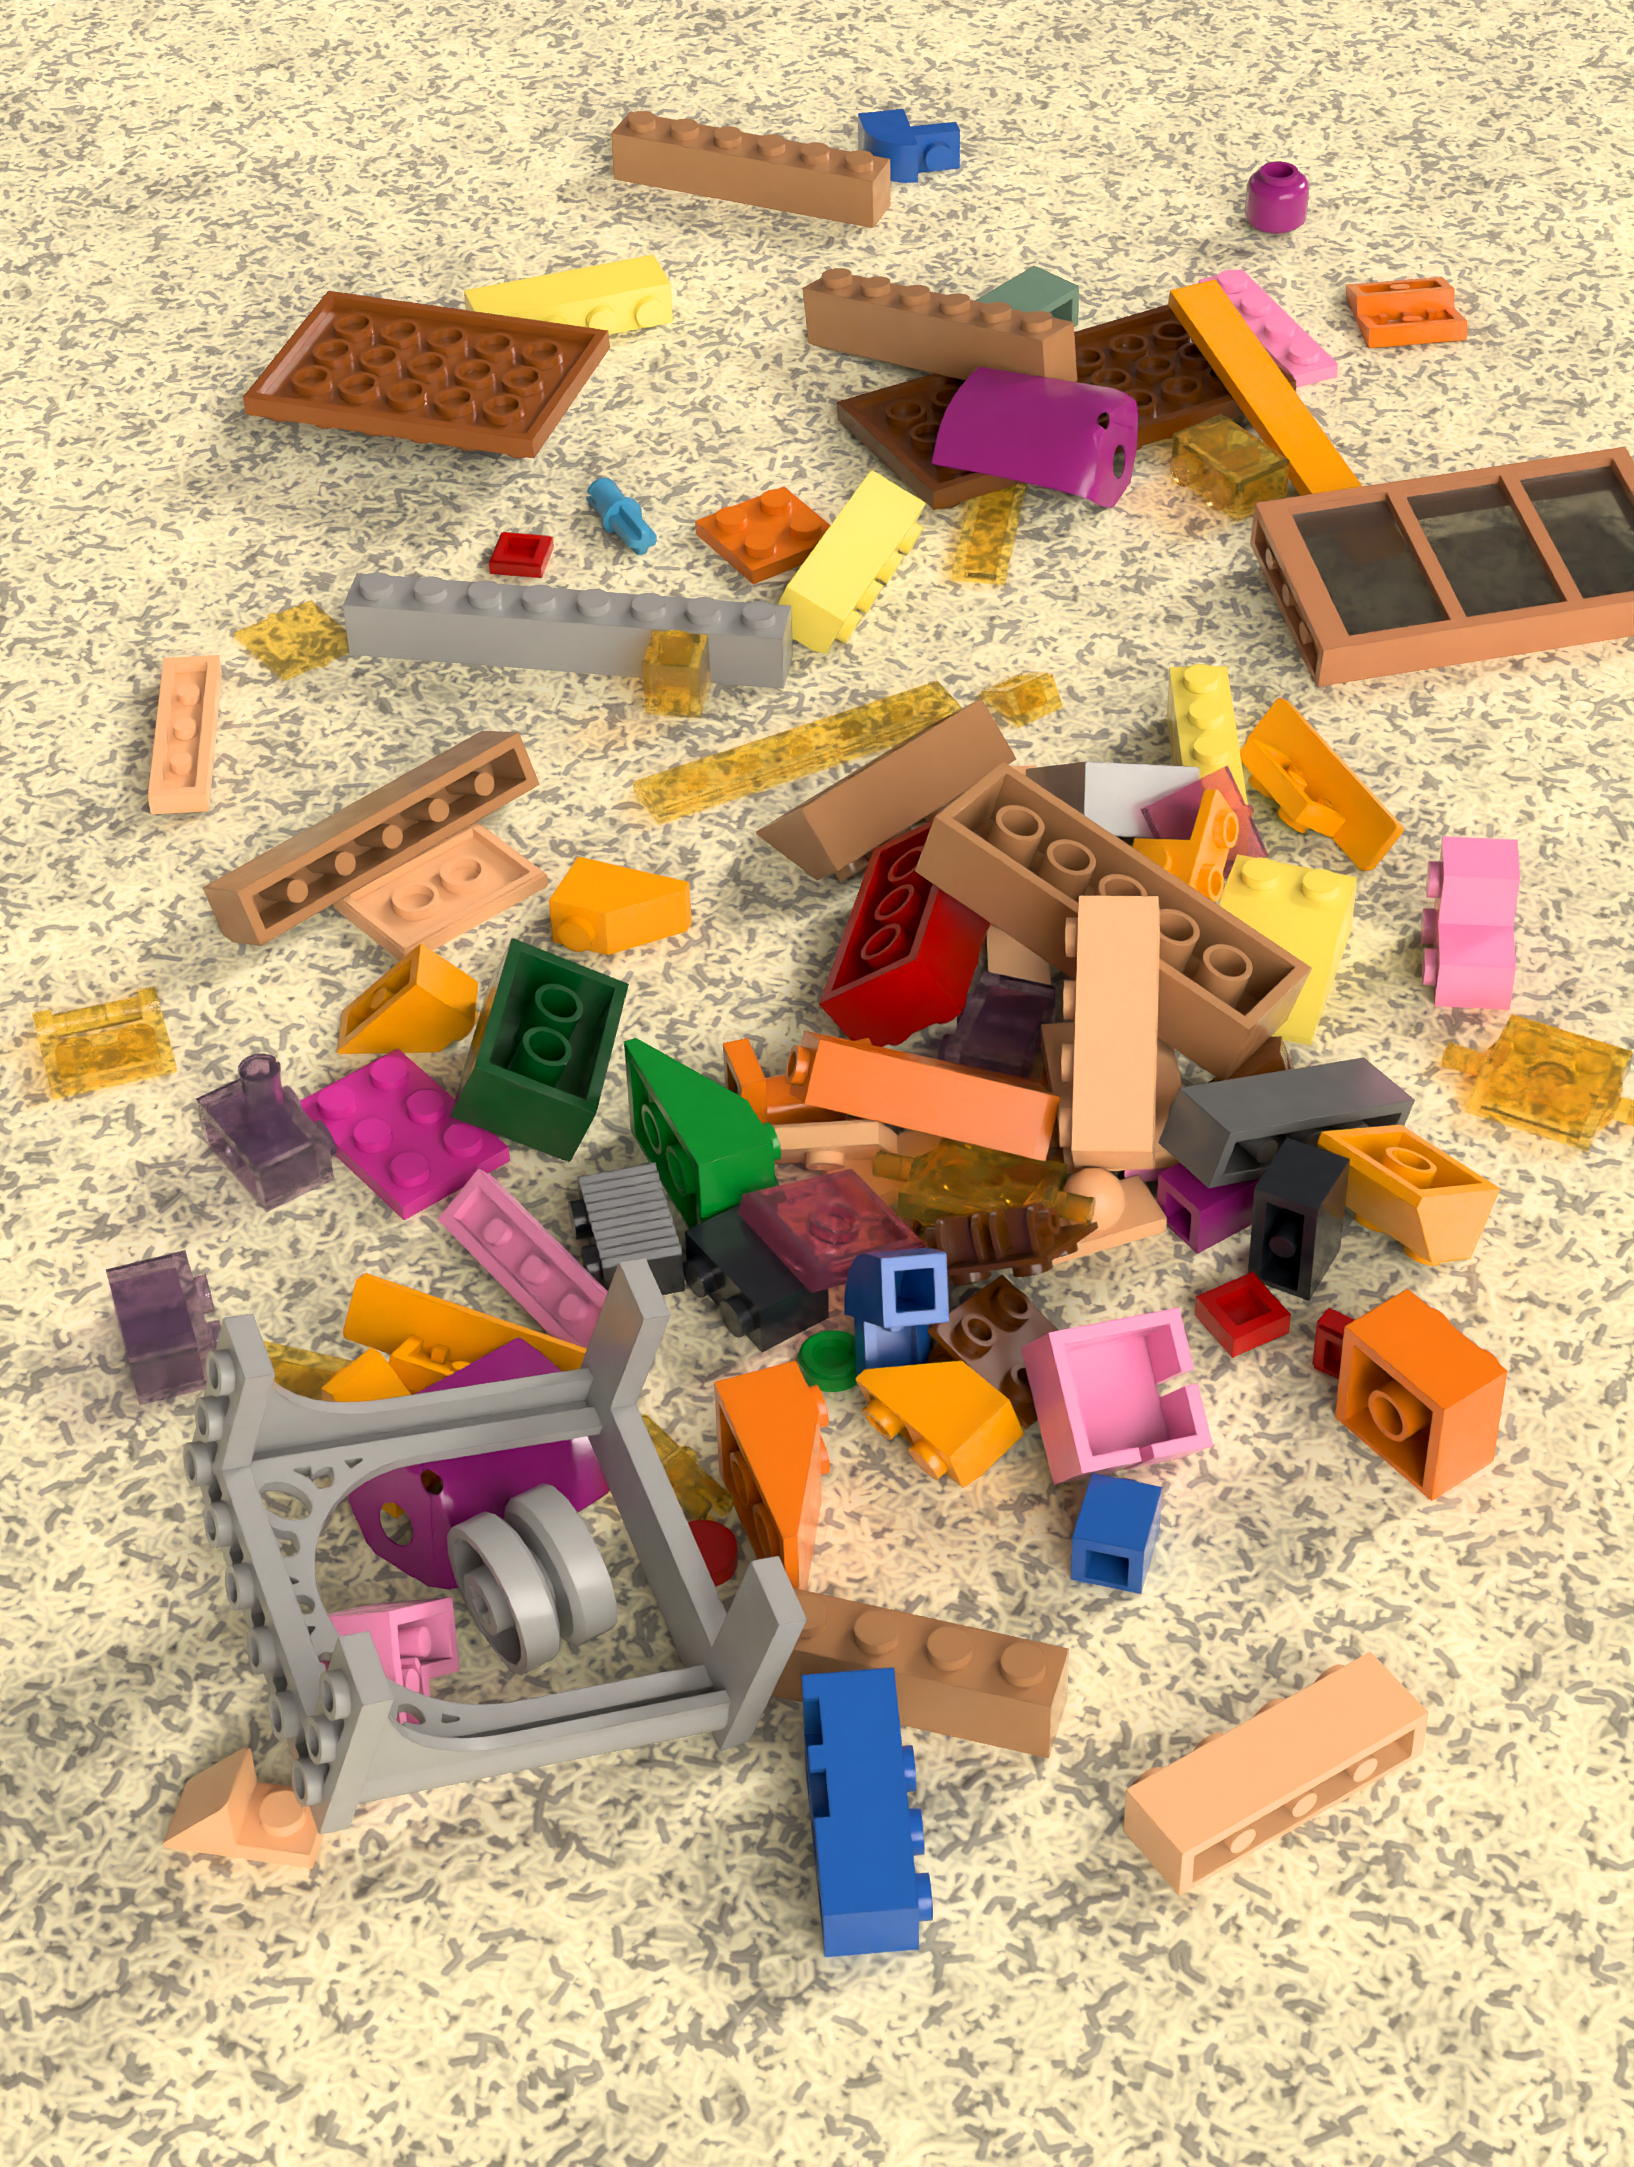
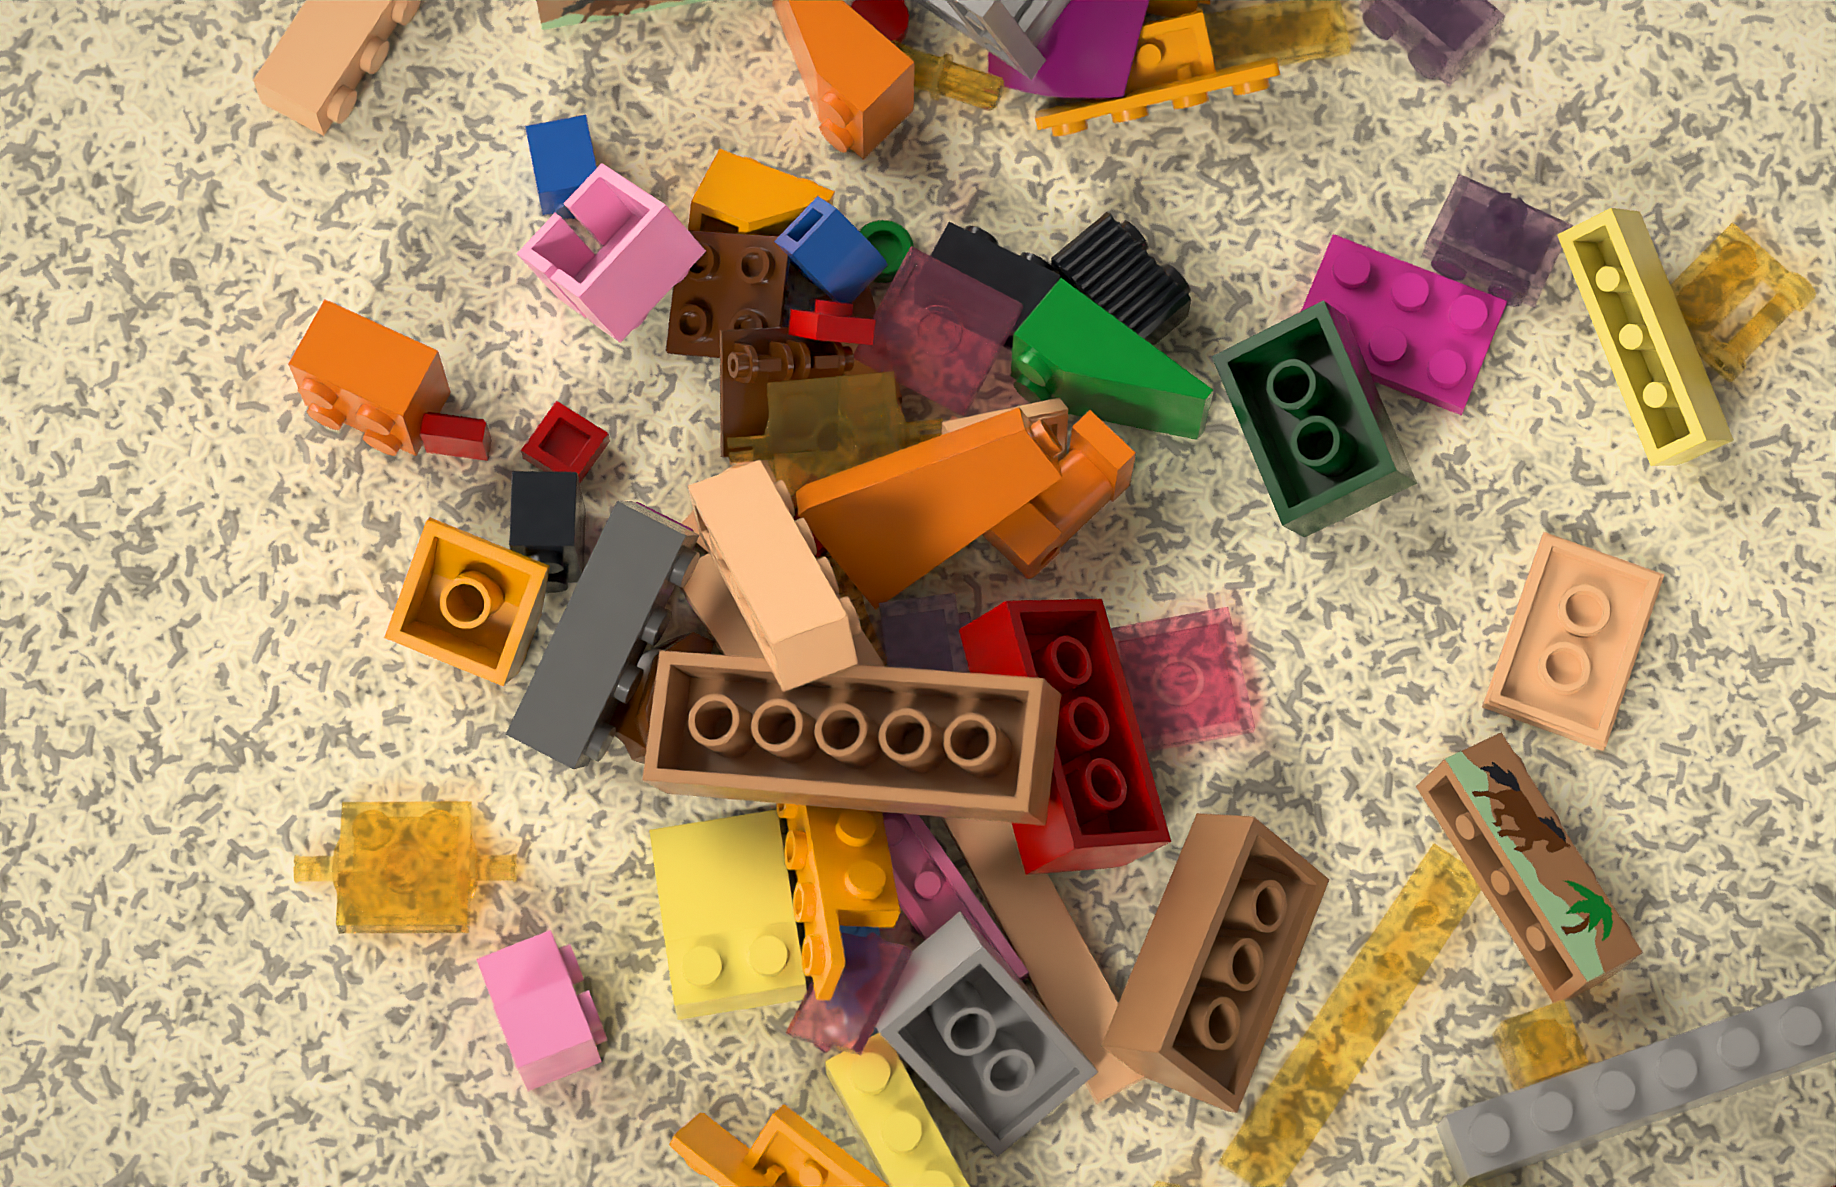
camera: 150 degrees right, 30 degrees up
(208, 1008) = (1645, 337): none -> light yellow brick
(370, 837) = (1671, 650): medium nougat brick -> none
(412, 1008) = (1478, 447): light orange slope -> none
(525, 1259) = (1169, 212): bright pink plate -> none
(599, 762) = (1528, 868): none -> medium nougat brick
(616, 907) = (1387, 670): light orange slope -> none
(776, 976) = (1185, 679): none -> clear pink tile
(939, 1226) = (833, 323): none -> red plate

